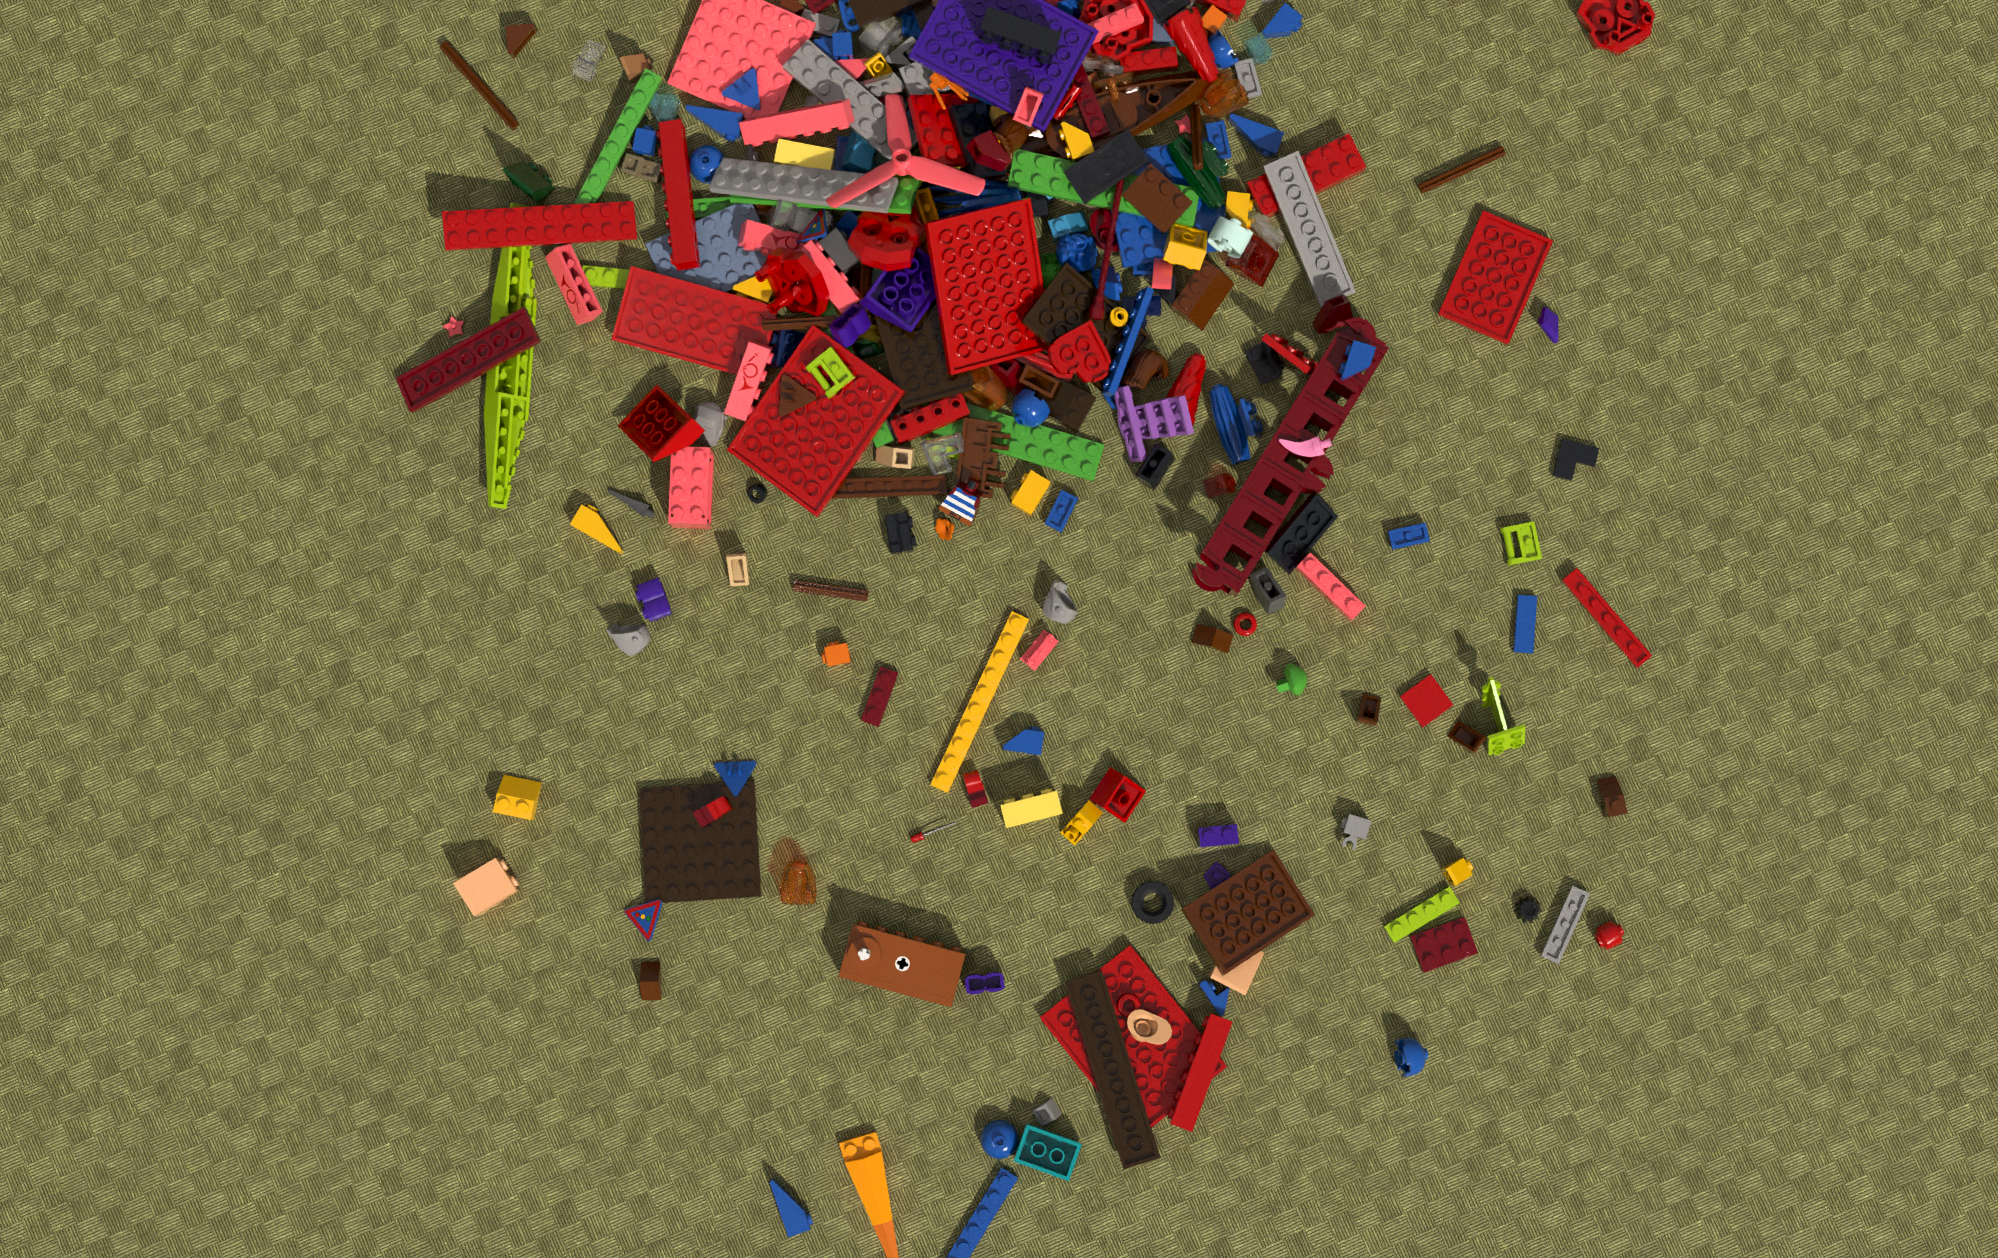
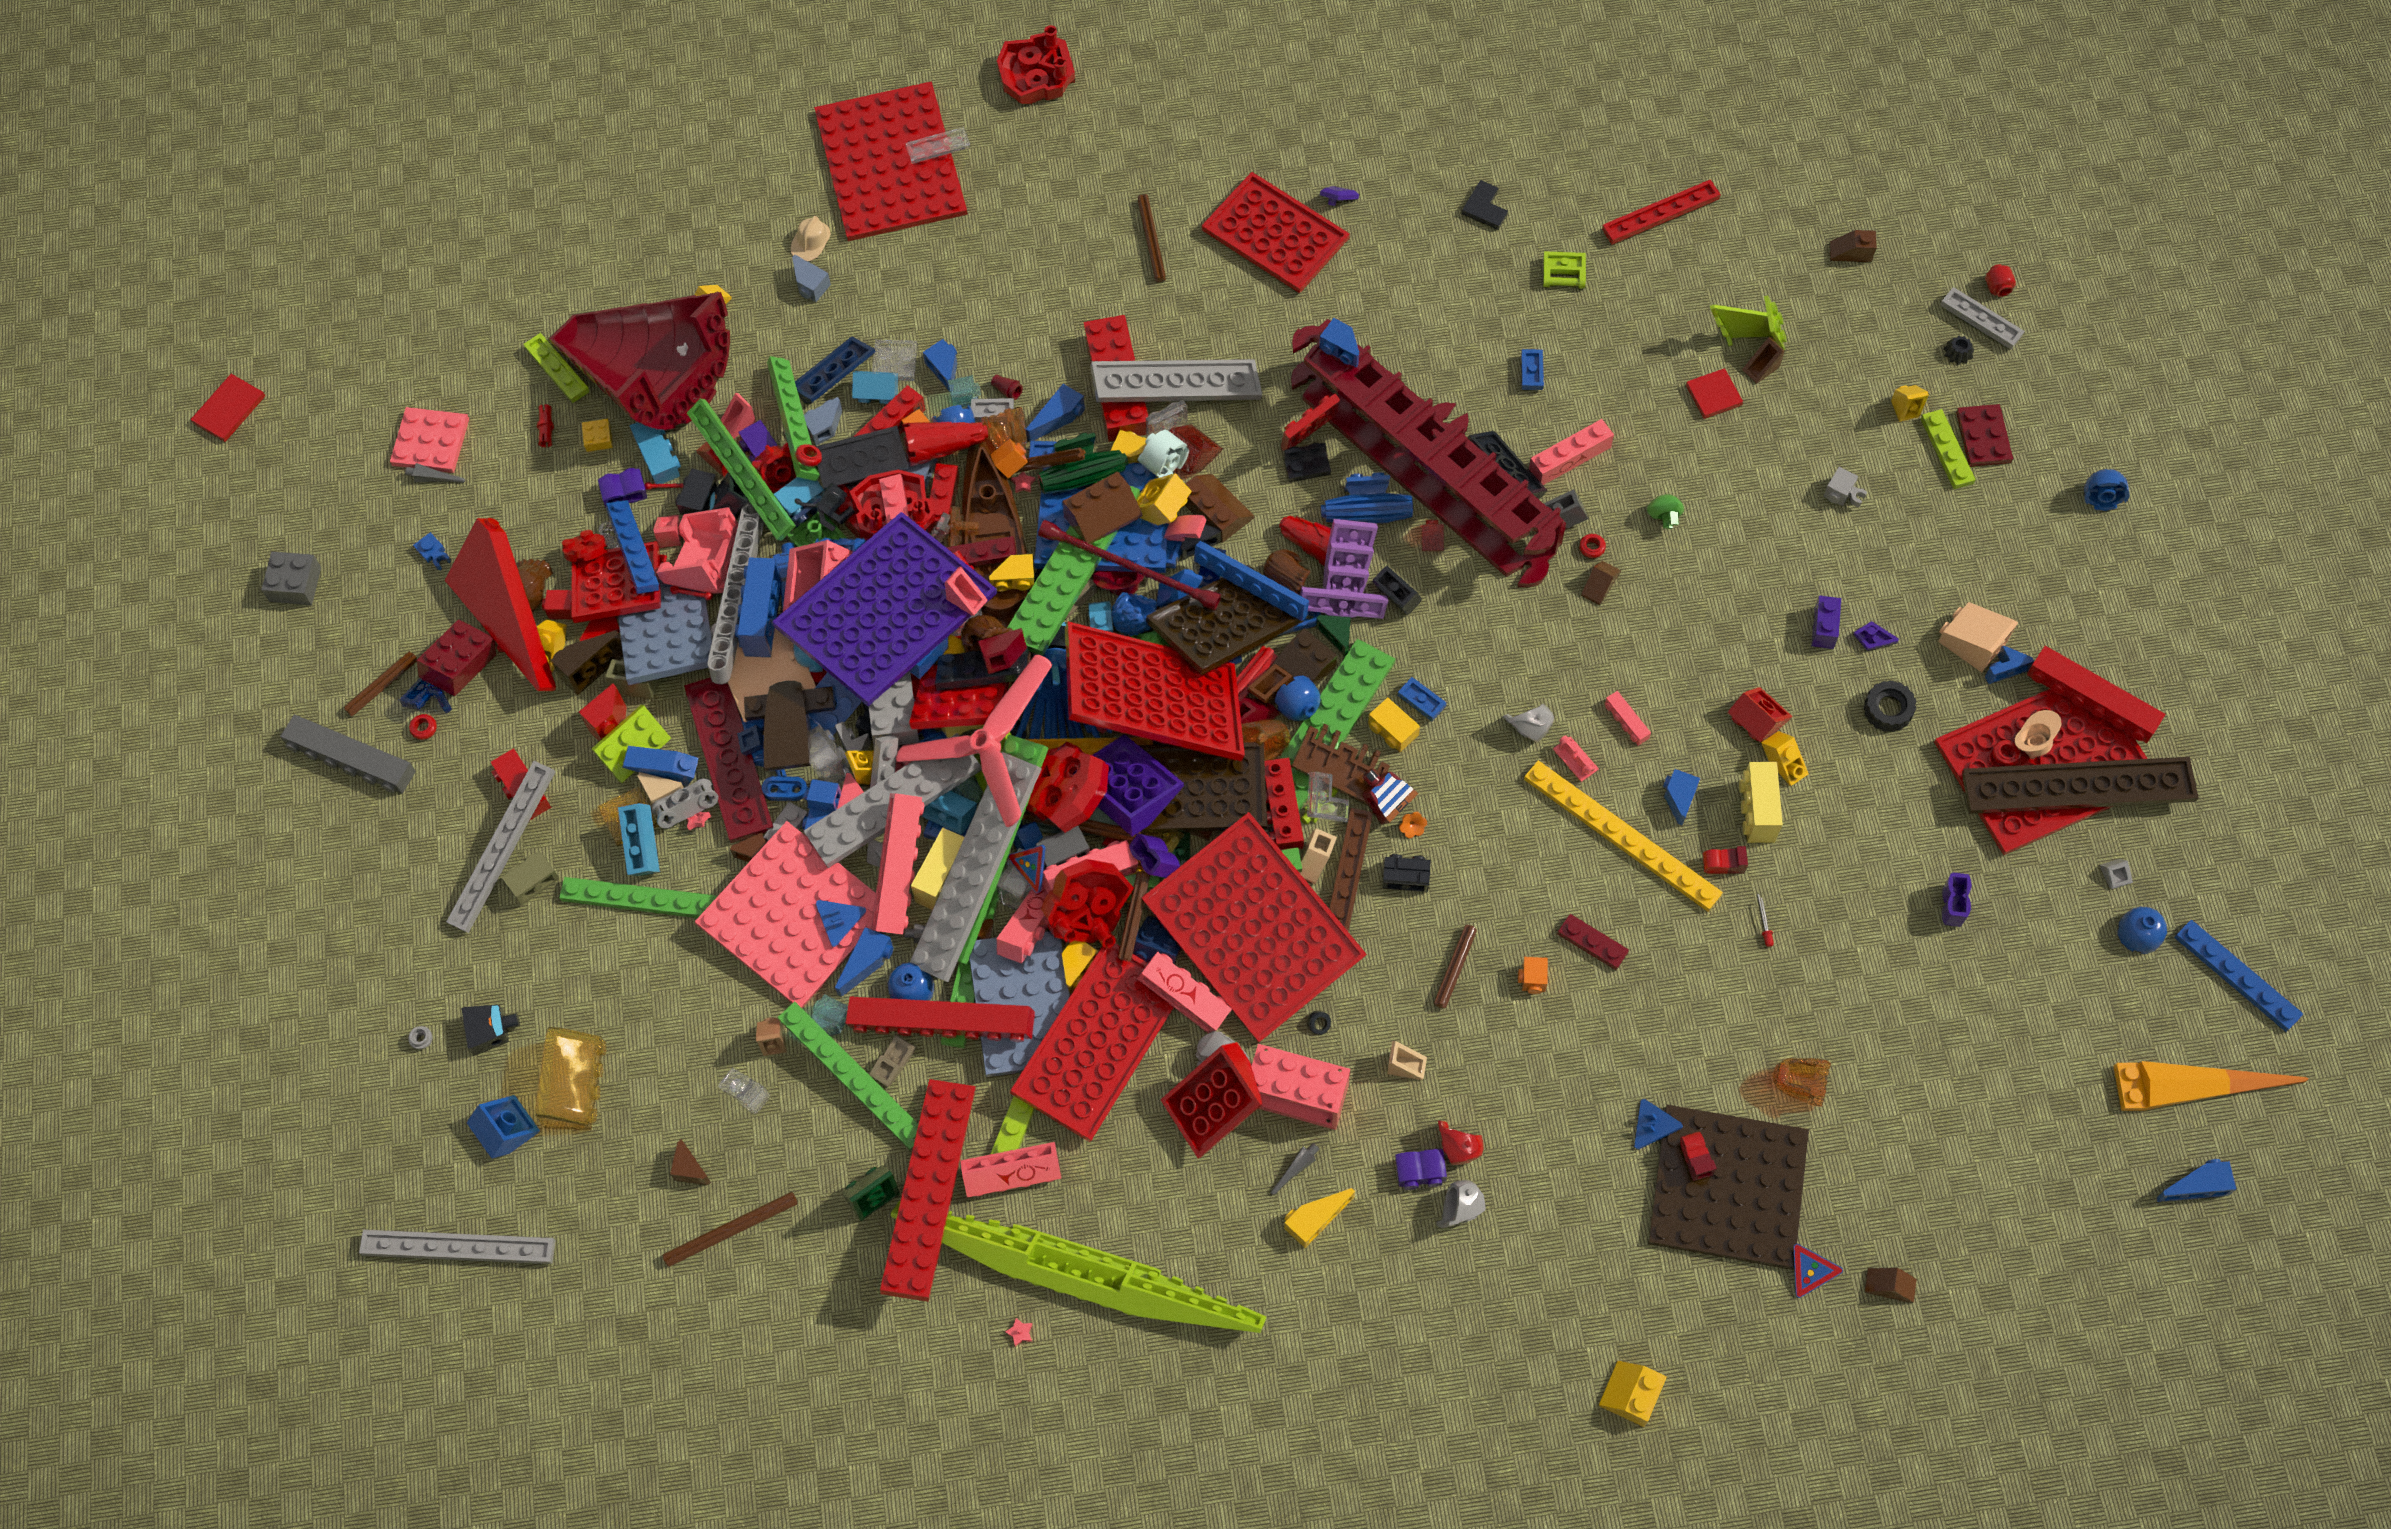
camera: 75 degrees left, 20 degrees down
(468, 359) = (1070, 1315): dark red plate -> none
(487, 886) = (1740, 1455): light nougat slope -> none
(645, 141) = (862, 1046): blue brick -> none
(680, 624) = (1460, 1146): none -> red helmet
(781, 214) = (1000, 904): clear slope -> none
(793, 396) = (1218, 942): reddish brown piece -> none
(835, 369) = (1200, 881): lime plate -> none
(874, 958) = (1919, 982): dark orange piece -> none
(941, 82) = (902, 688): orange plant -> none
(1019, 35) = (883, 579): black brick -> none
(1047, 1151) = (2166, 876): teal brick -> none
(1081, 353) = (1253, 624): red plate -> none
(1087, 685) = (1627, 717): none -> coral piece
(1105, 427) = (1335, 630): none -> dark green slope
(1106, 166) = (1053, 544): black plate -> none
(1113, 316) = (1220, 584): yellow plate -> none
(1194, 106) = (1009, 458): none -> orange brick
(1247, 912) = (1921, 606): reddish brown plate -> none
(1274, 85) = (1008, 387): none -> dark red cone
(1308, 448) = (1424, 409): bright pink bar -> none
(1333, 314) = (1274, 383): dark red slope -> none
(1368, 710) = (1715, 447): reddish brown slope -> none
(1525, 624) = (1651, 286): blue tile -> none

